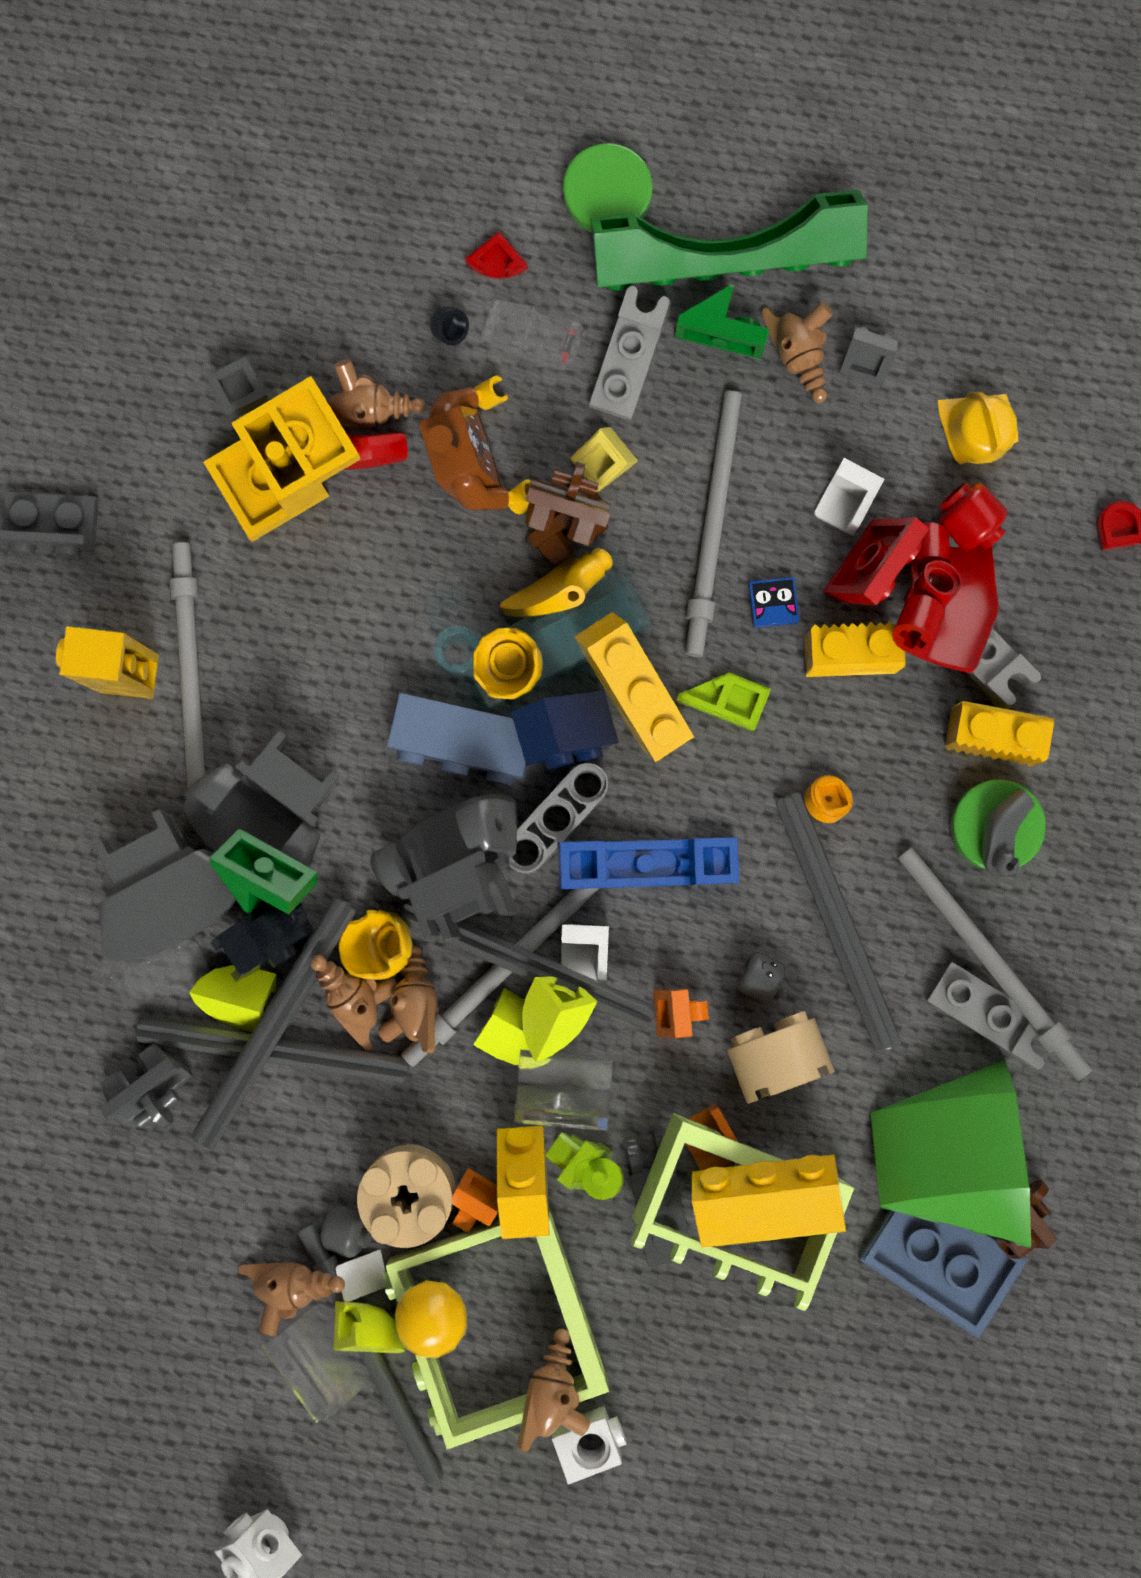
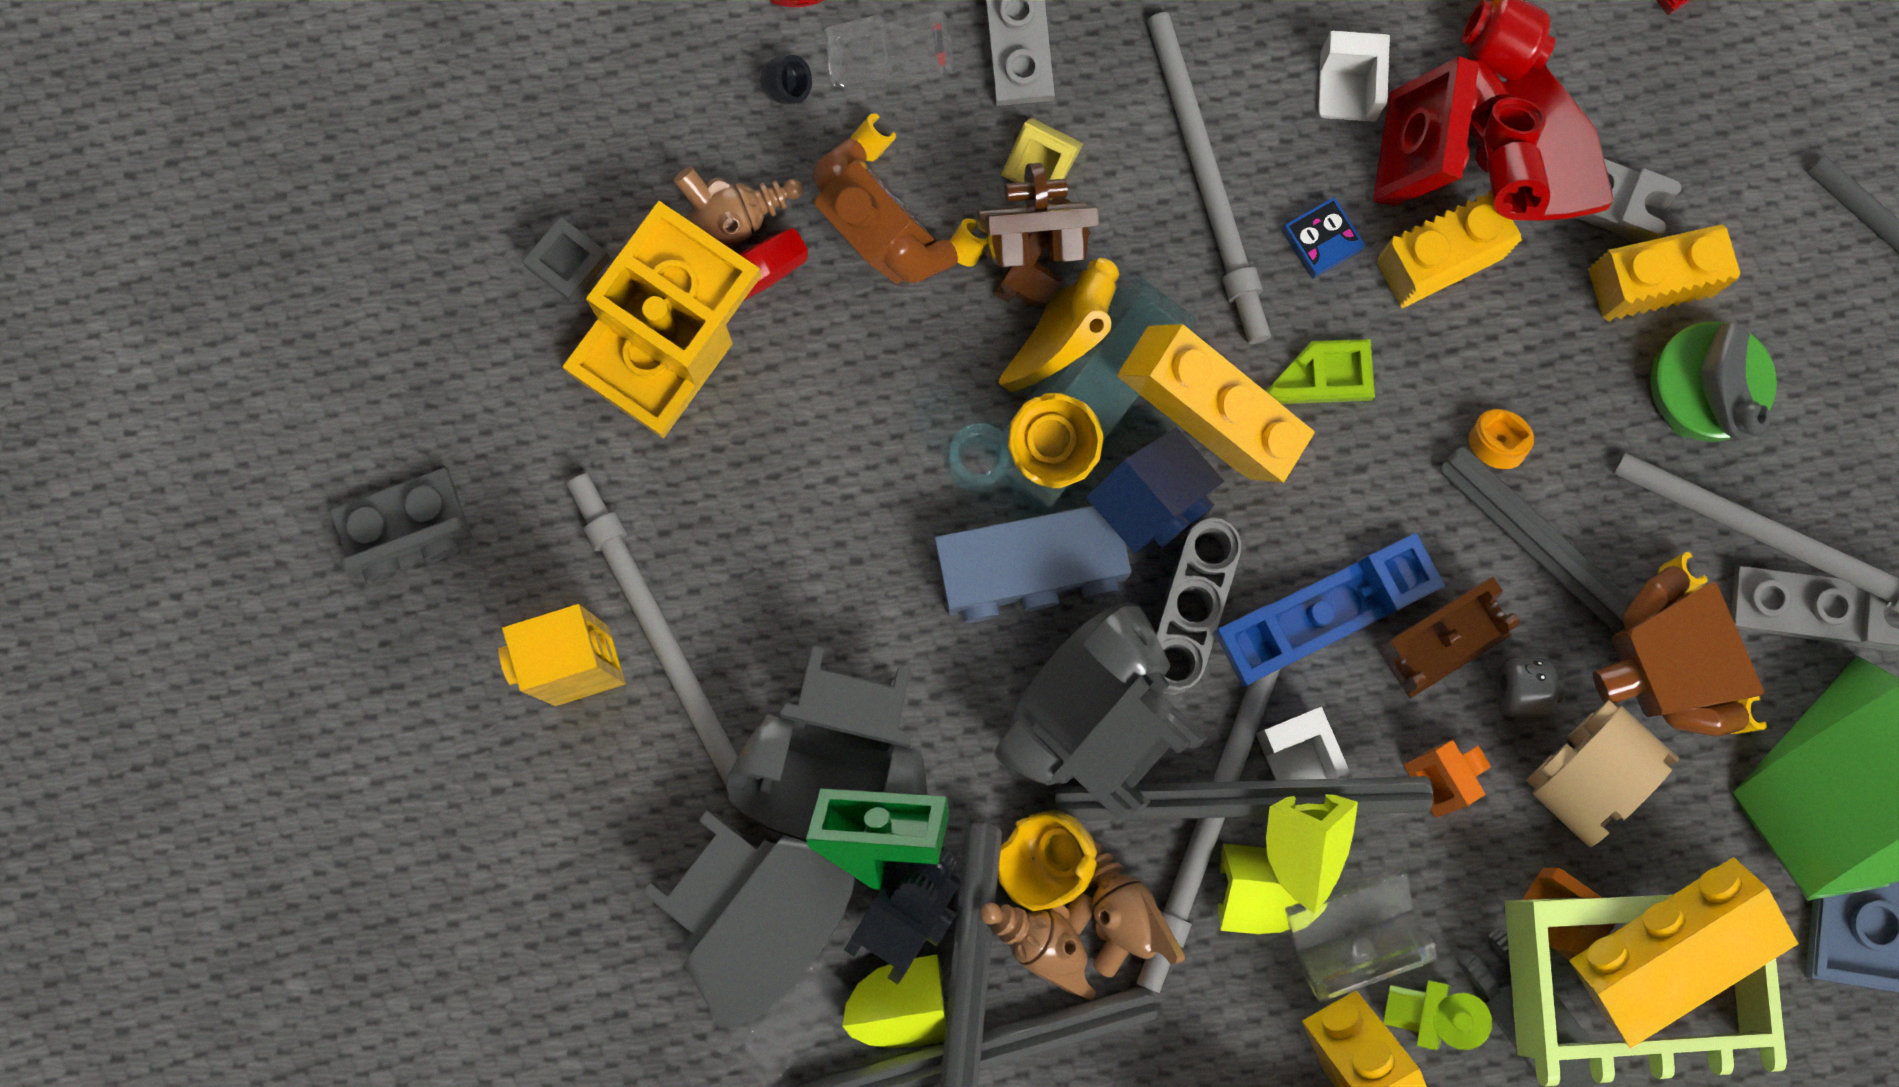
camera: 30 degrees left, 5 degrees down
(723, 919) = (1448, 638): none -> reddish brown hinge
(873, 1005) = (1683, 657): none -> dark orange torso

